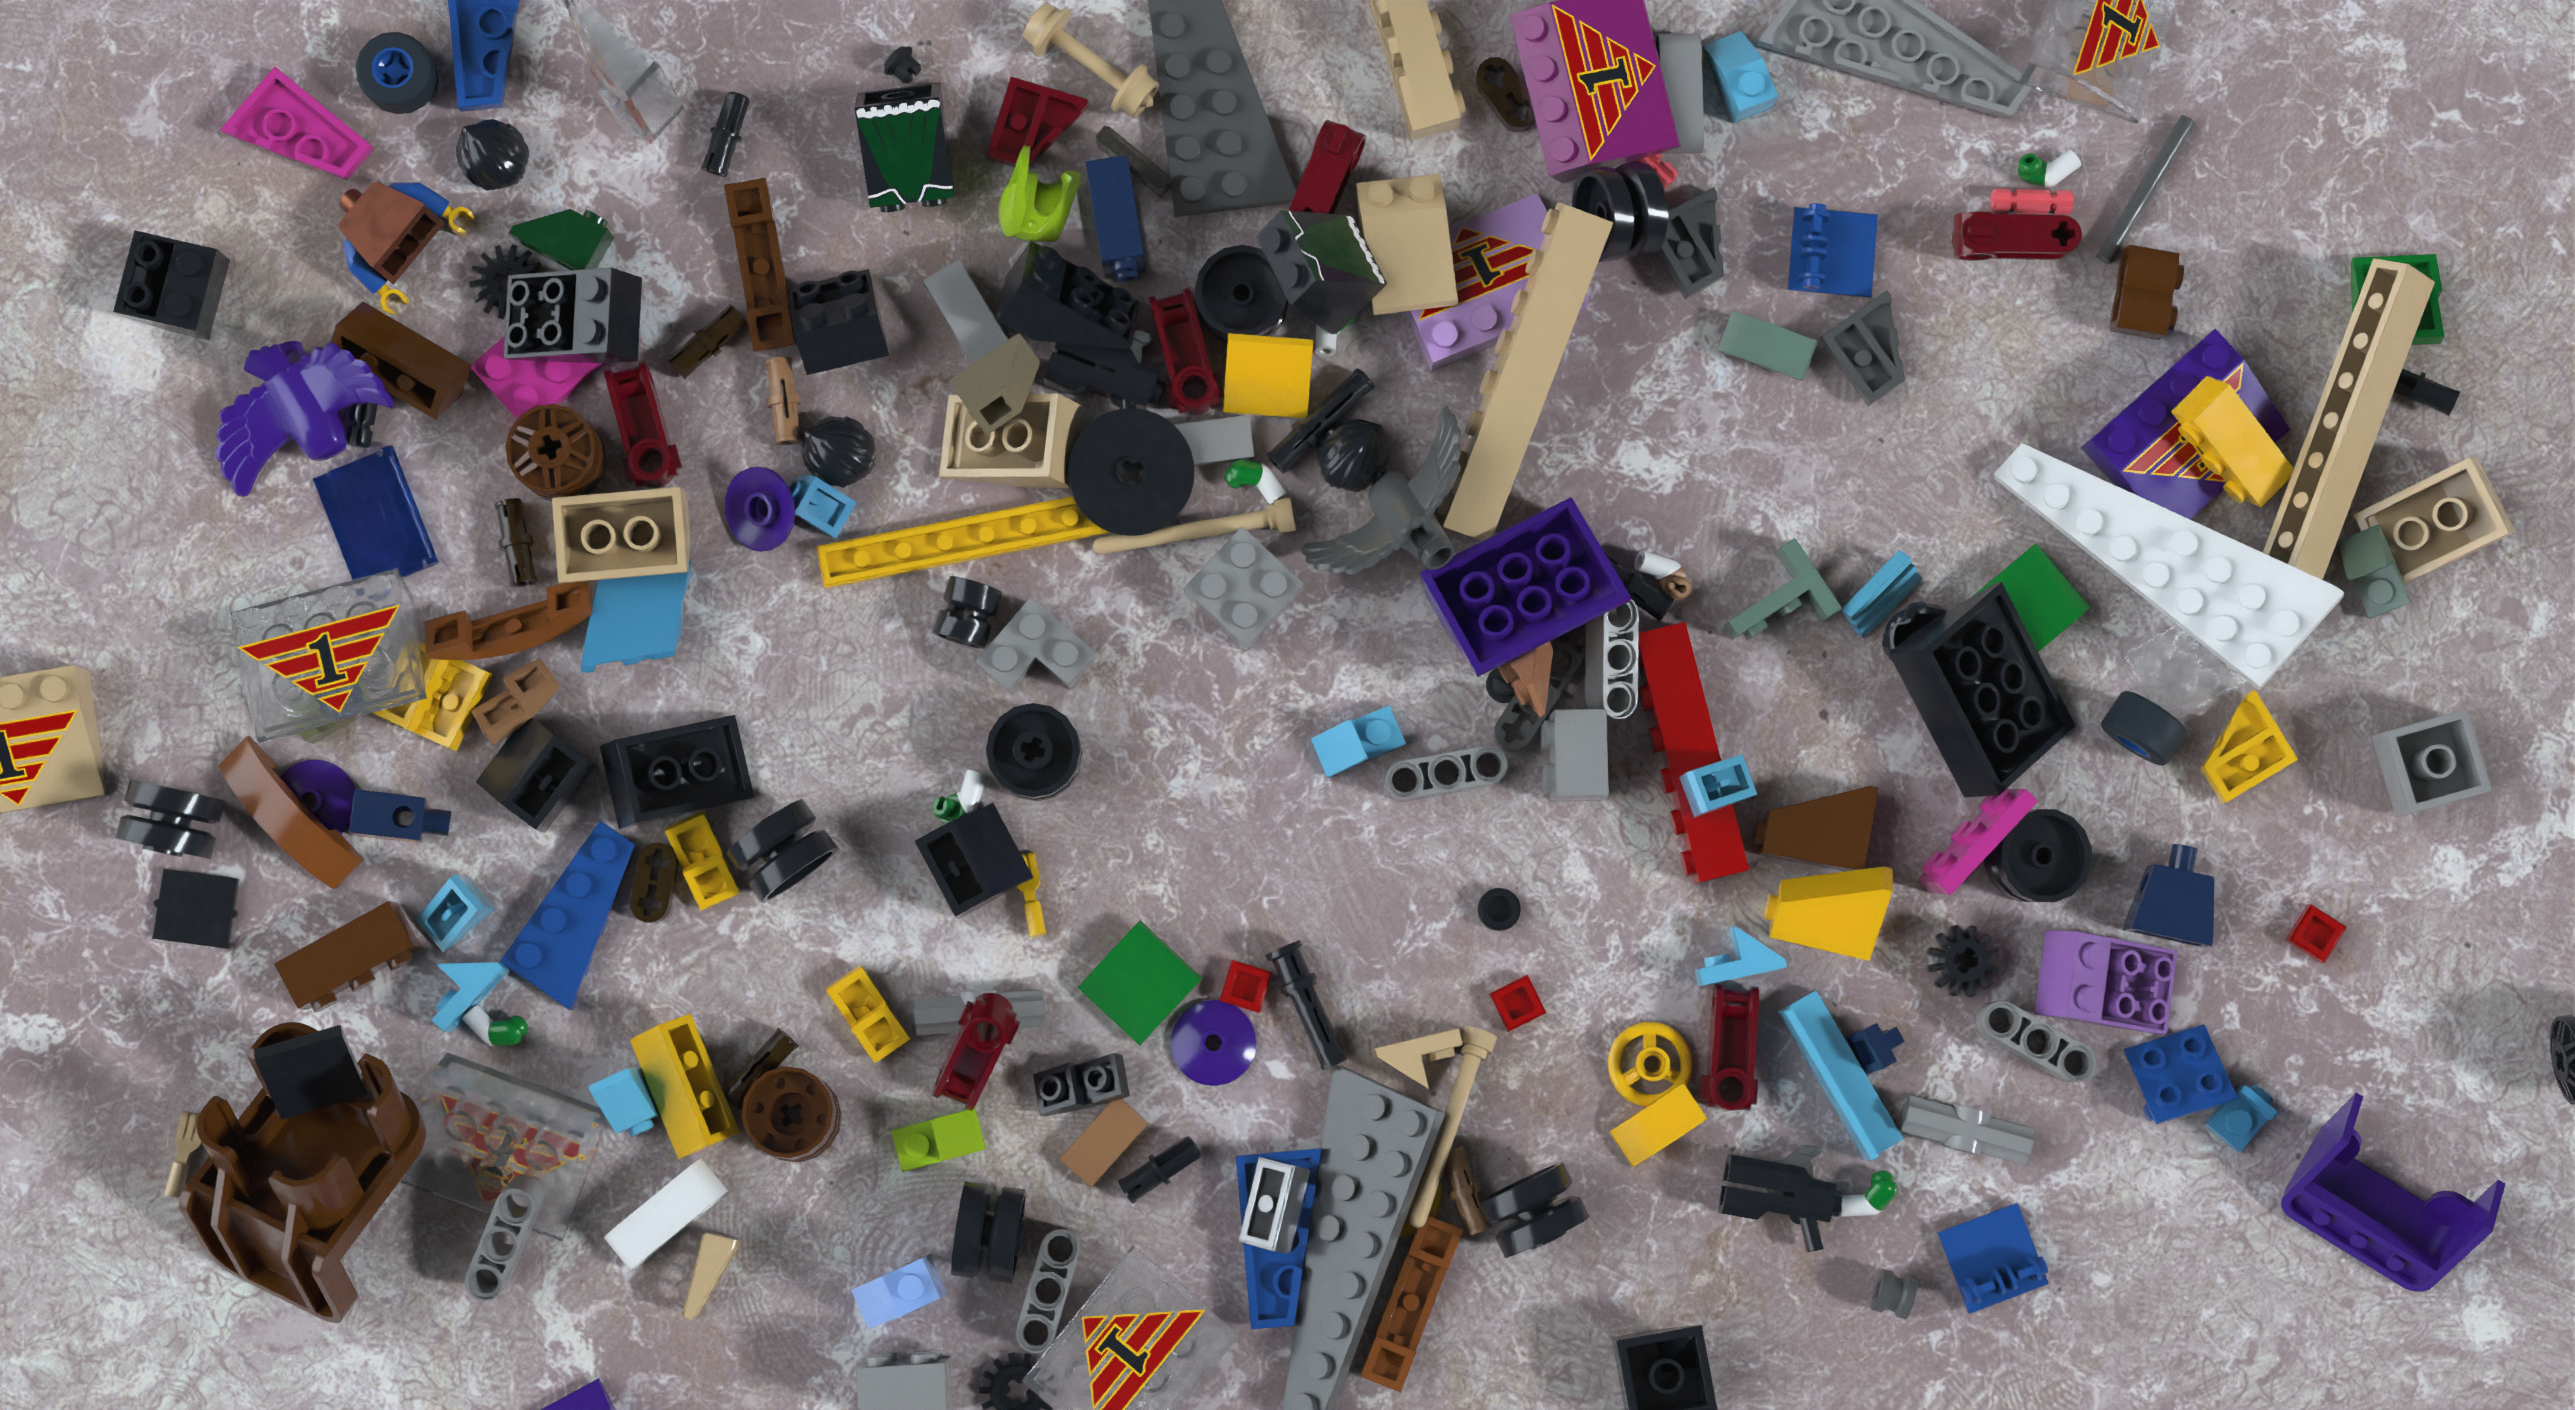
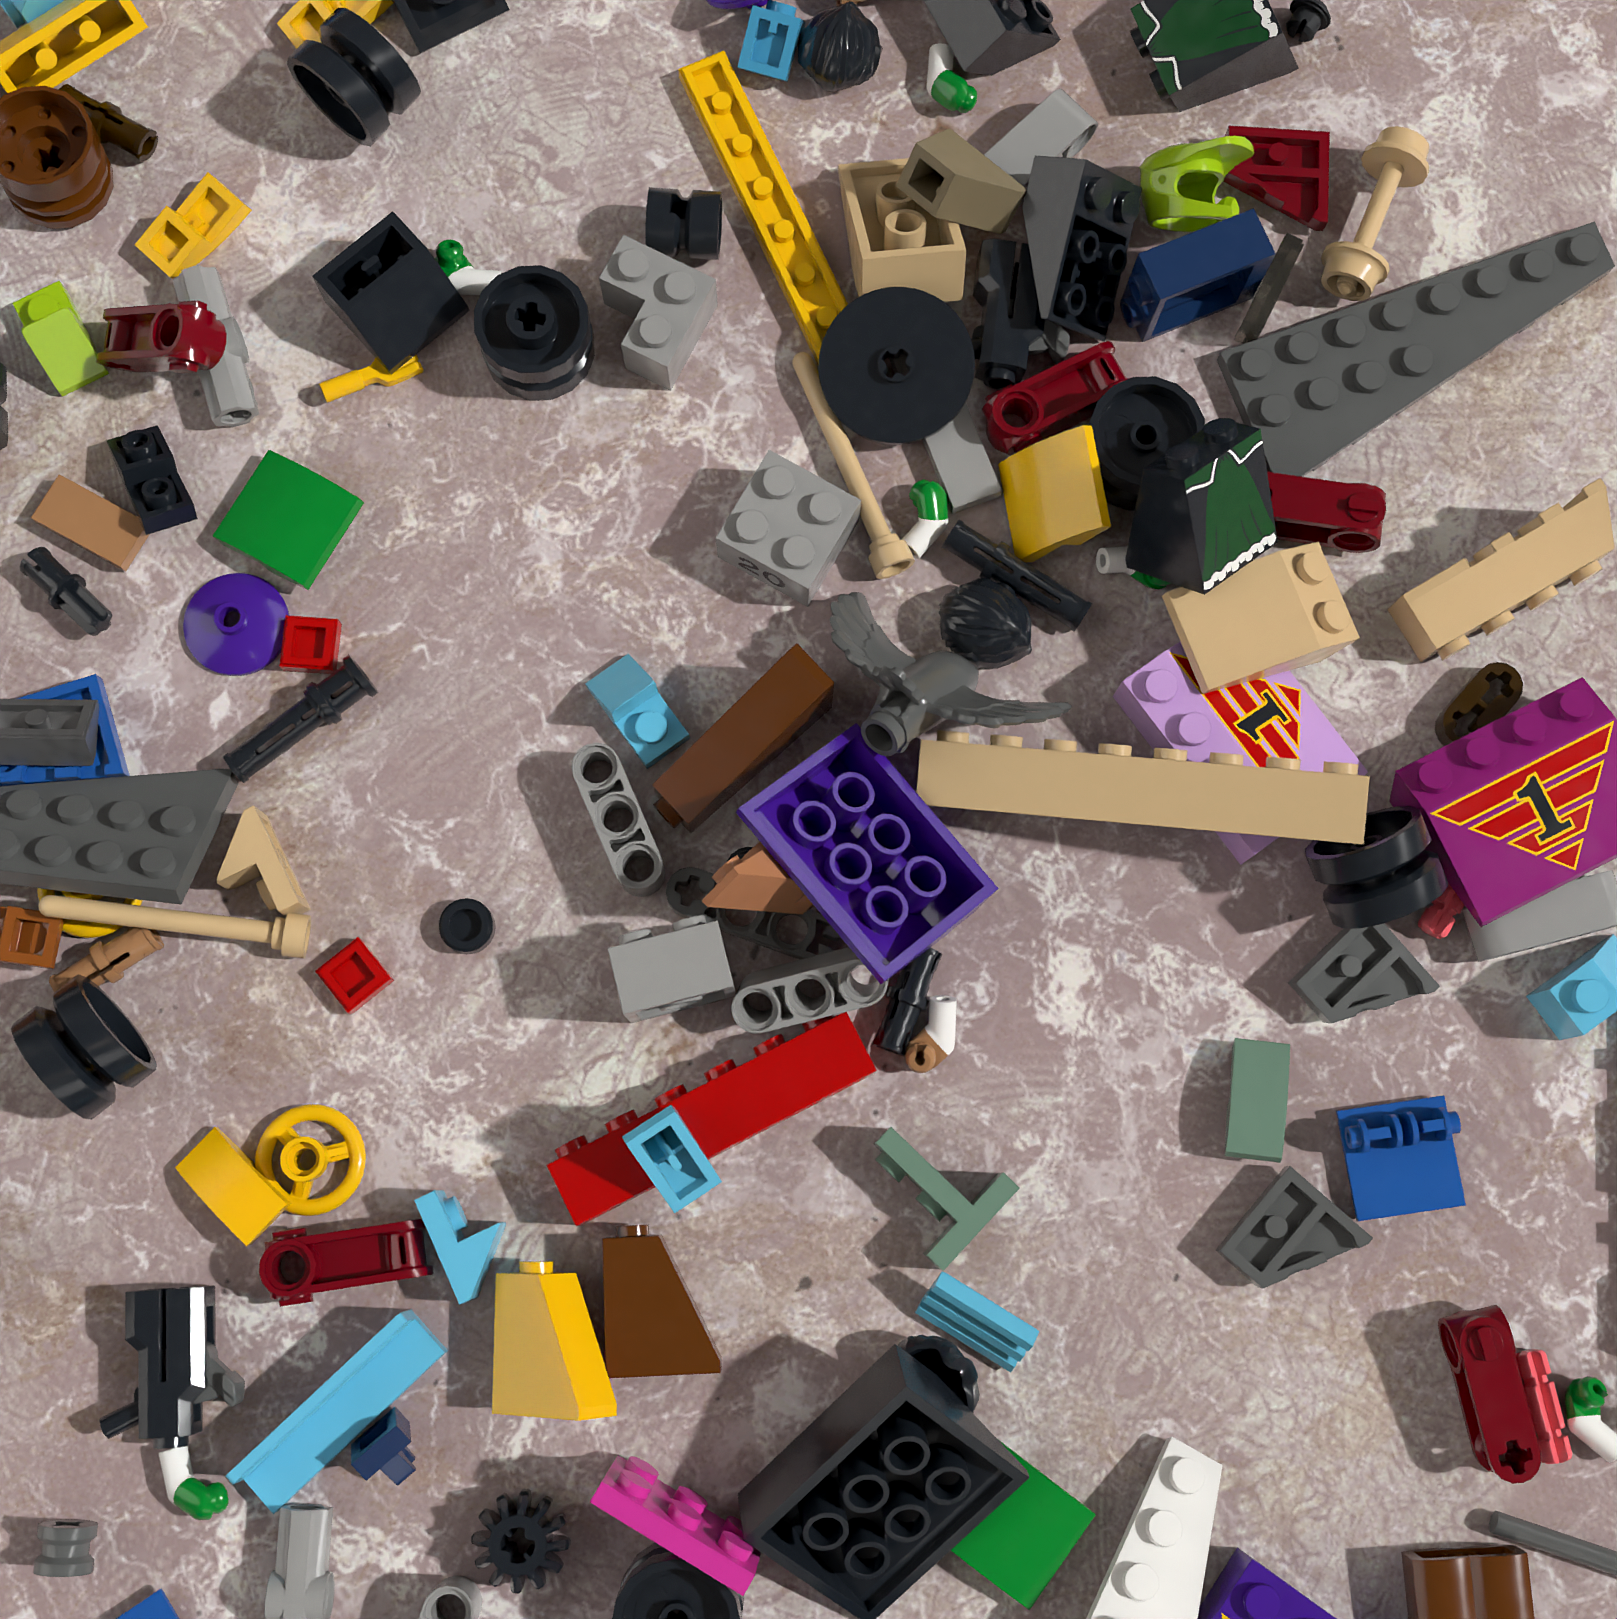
camera: 80 degrees right, 5 degrees down
(890, 373) = (944, 84): none -> green arm
(1409, 663) = (744, 740): none -> reddish brown slope

